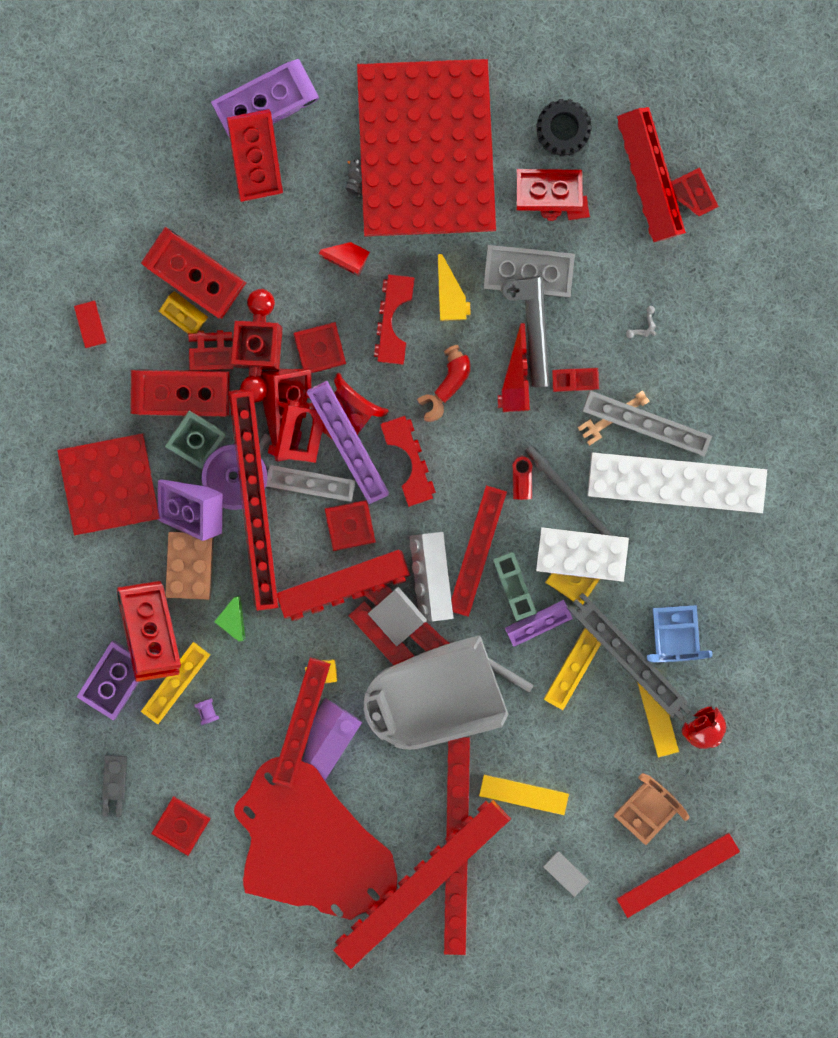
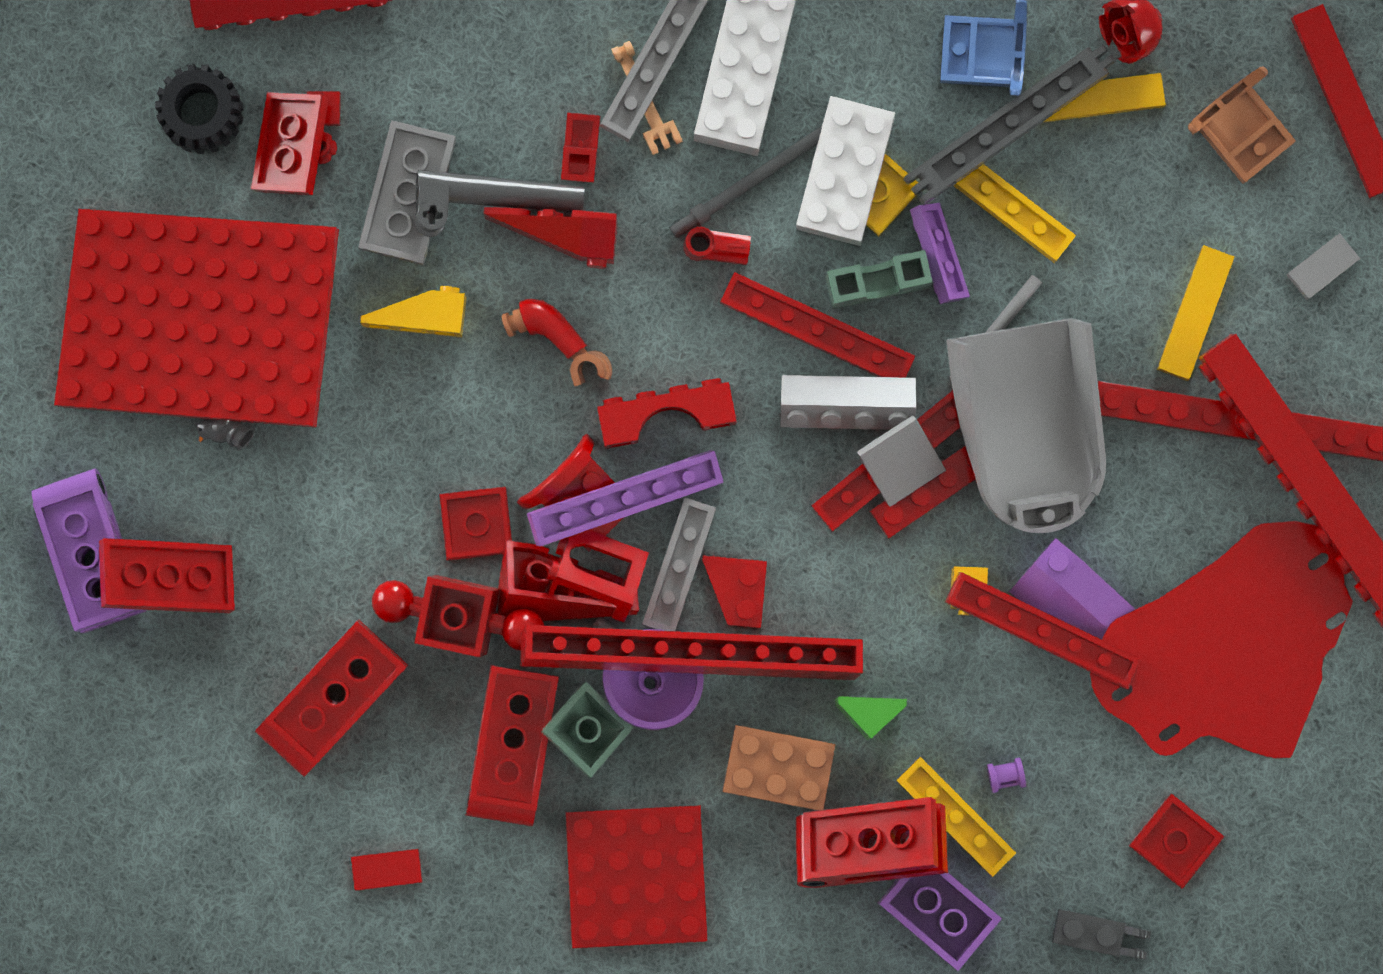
camera: 90 degrees left, 5 degrees down
(183, 313) = (392, 724): yellow slope -> none
(190, 508) = (691, 752): medium lavender slope -> none
(210, 358) = (465, 690): red plate -> none
(302, 523) = (739, 588): none -> red wing
(343, 584) = (841, 537): red brick -> none
(347, 256) = (343, 461): red slope -> none
(350, 525) = (751, 516): red tile -> none
(398, 291) = (491, 414): red arch -> none
(630, 333) = (493, 22): light grey piece -> none

